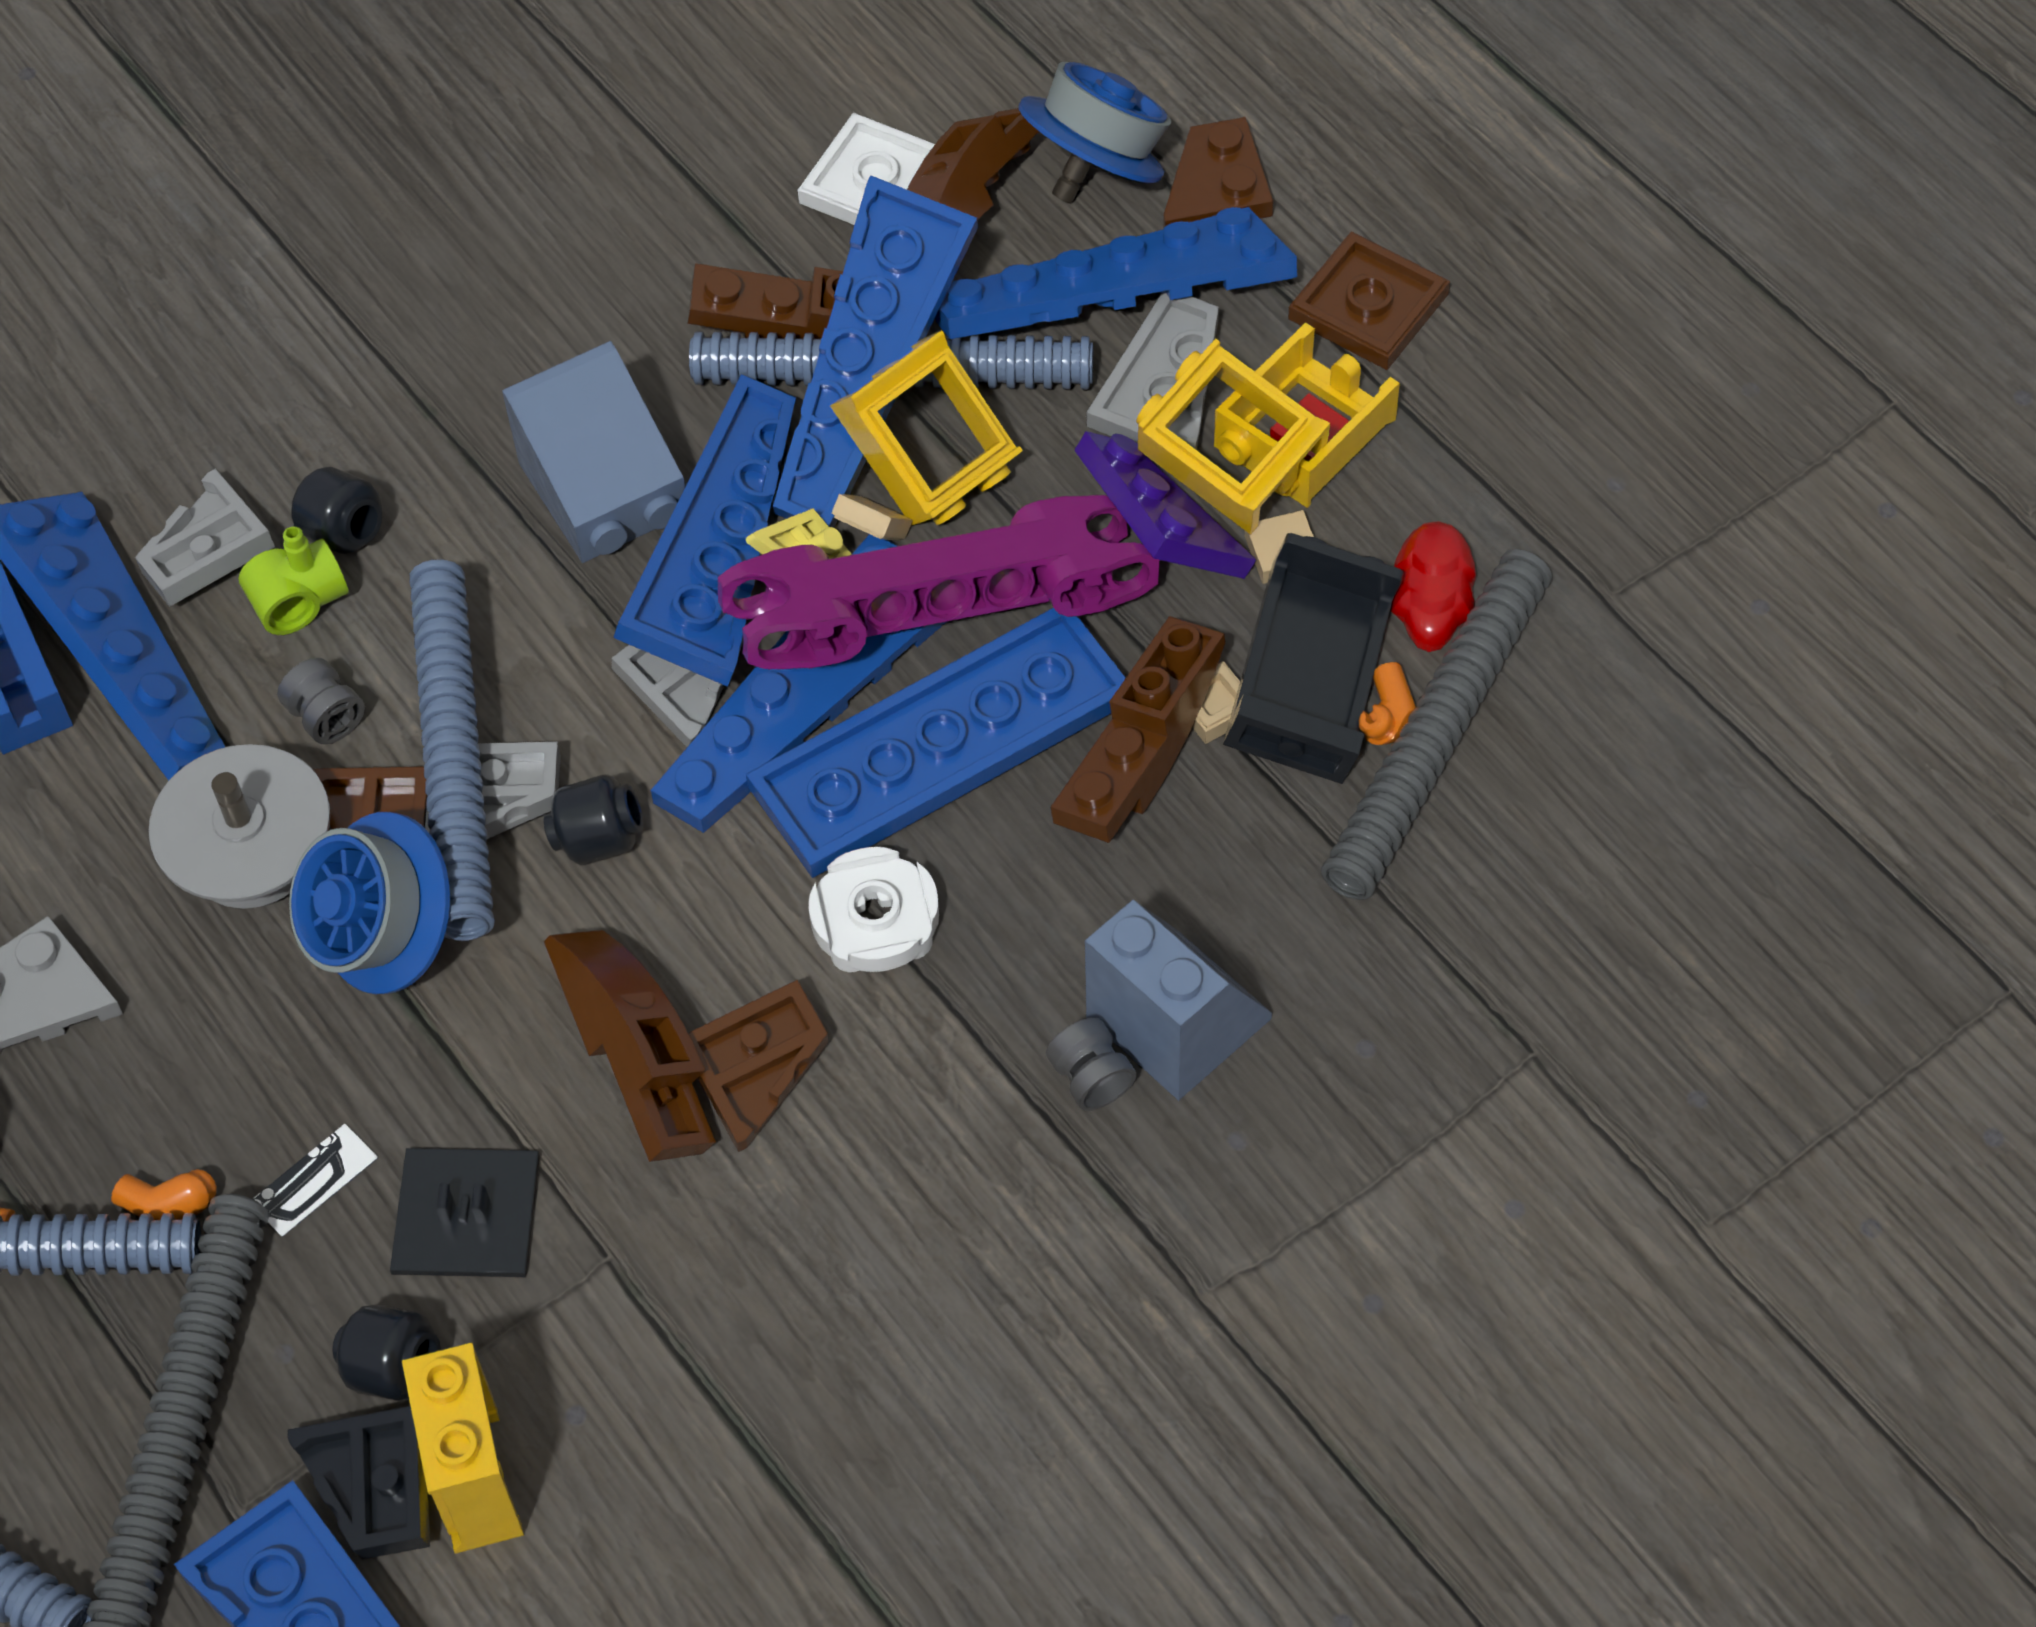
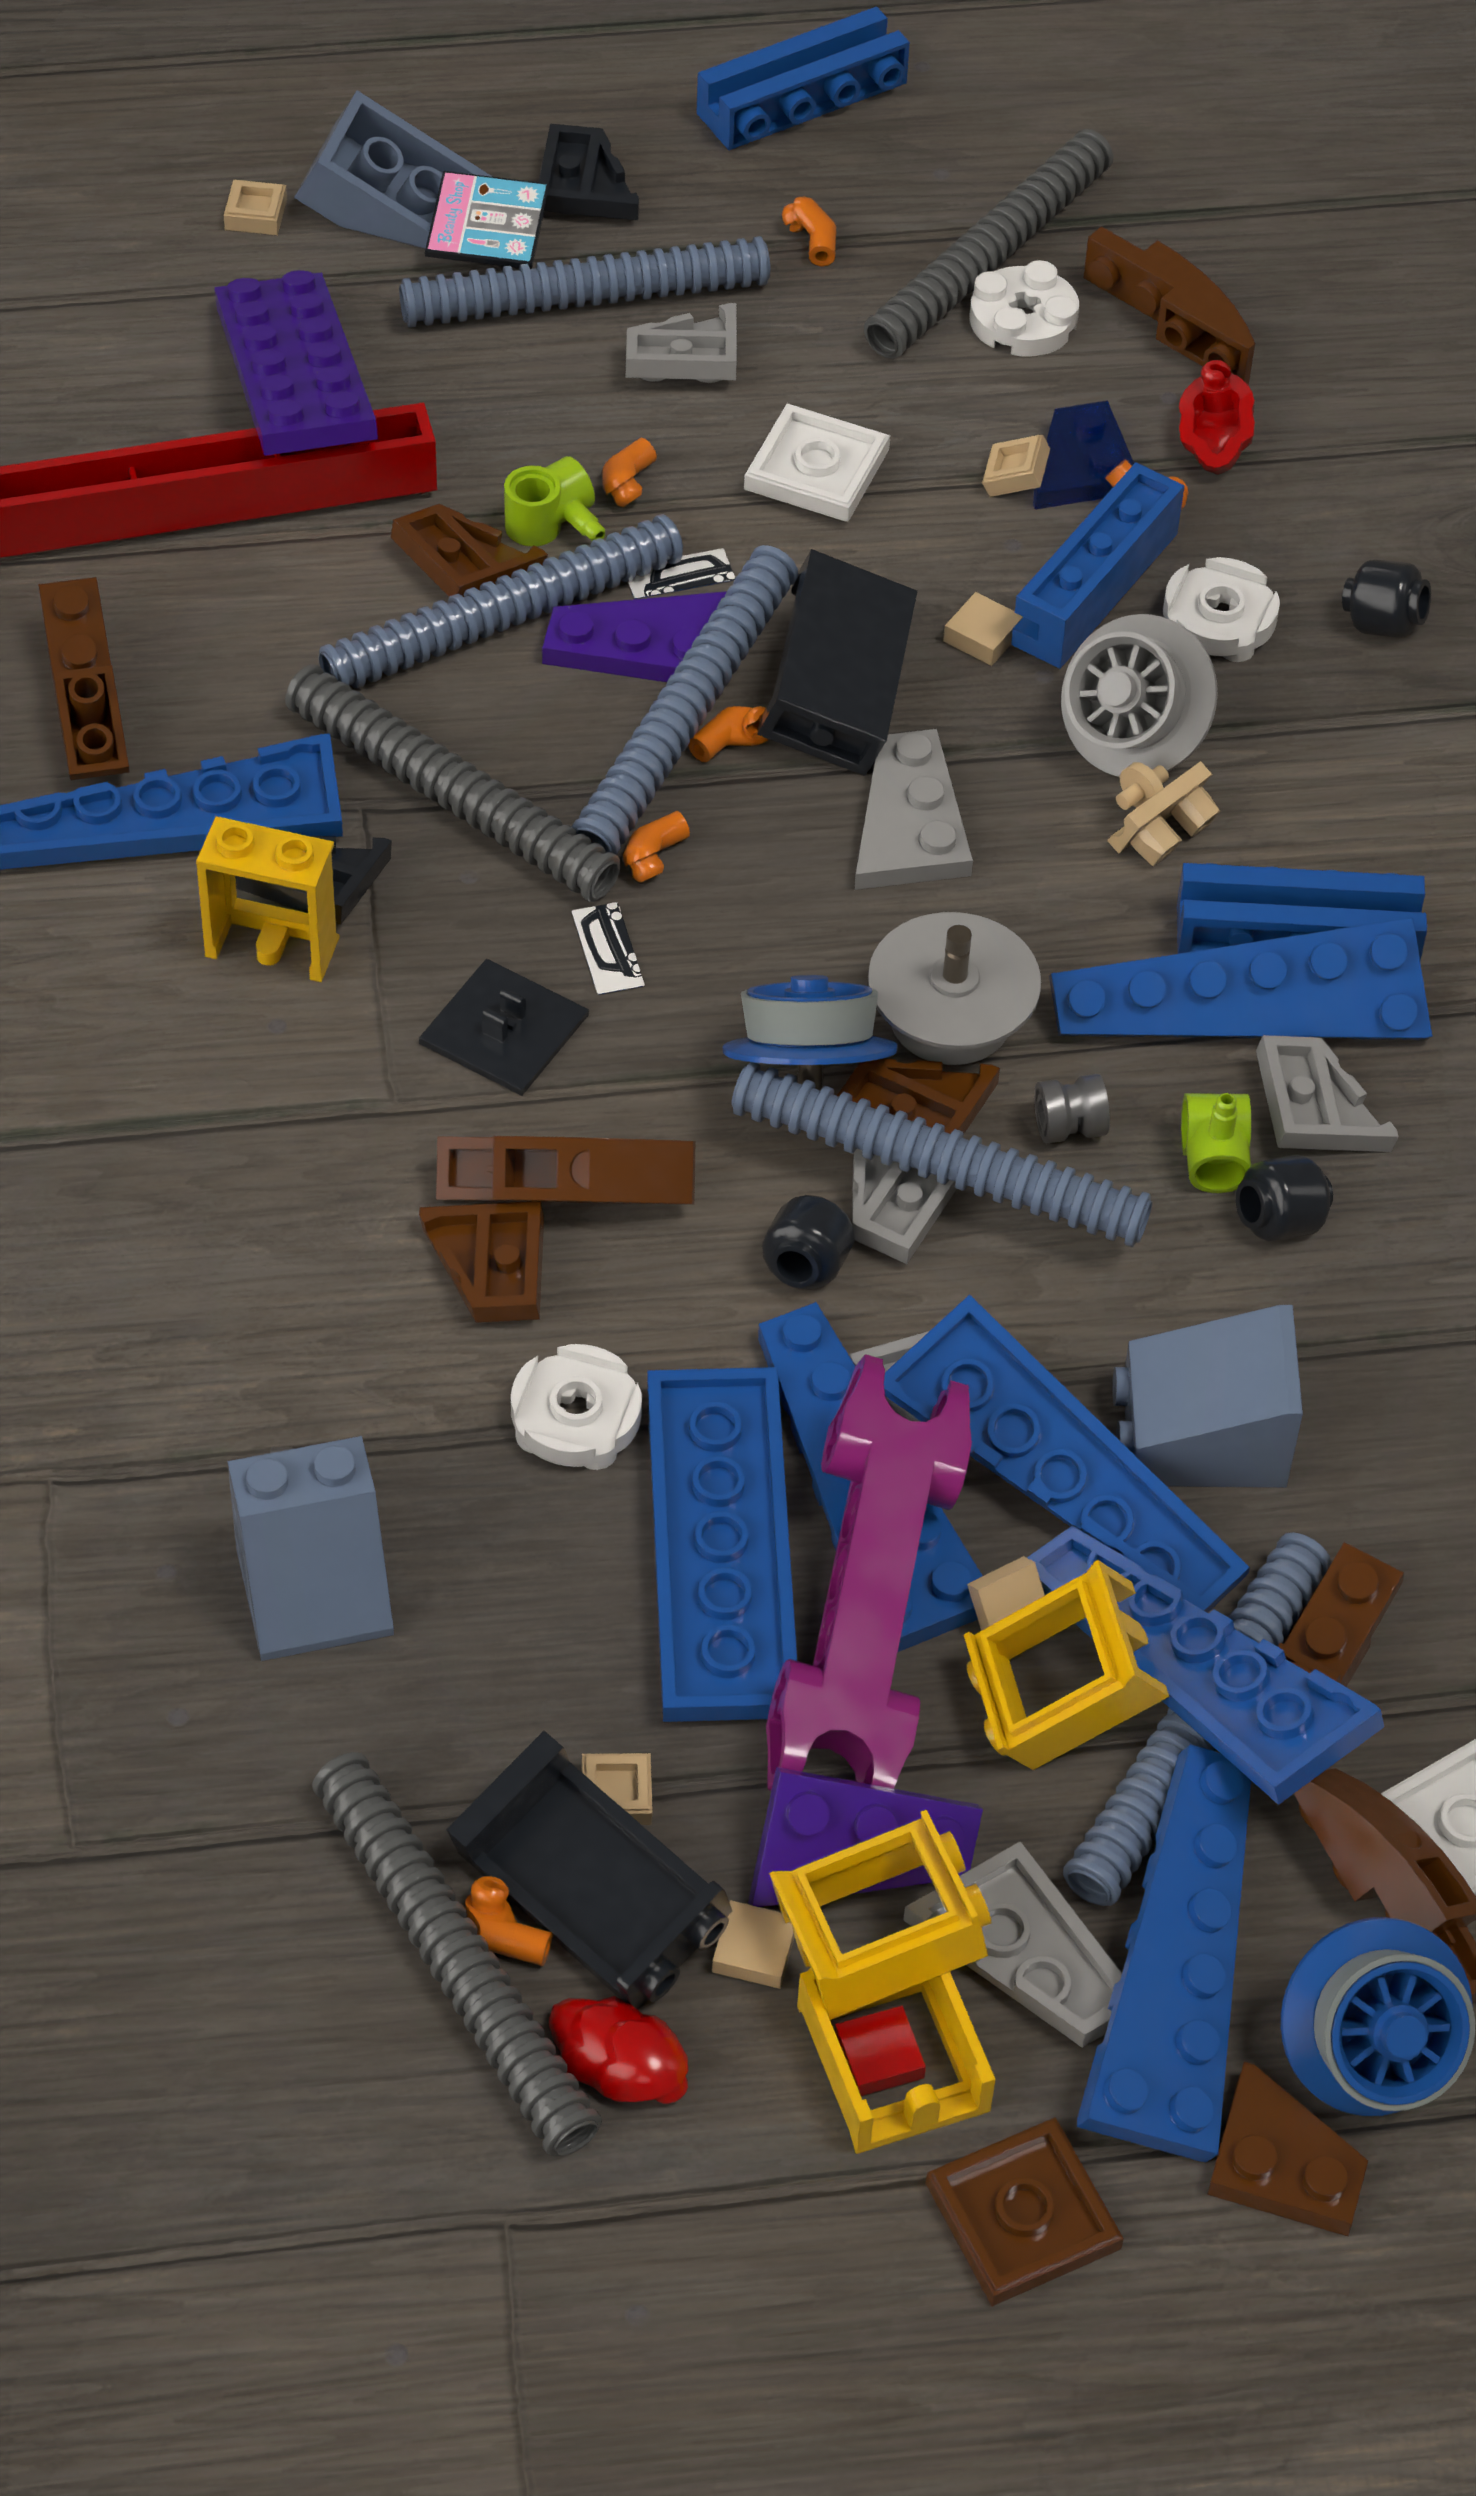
camera: 115 degrees right, 5 degrees down
(373, 1347) = (405, 914): black head -> none
(799, 530) = (1002, 1518): light yellow piece -> none
(1146, 731) = (603, 1688): reddish brown slope -> none

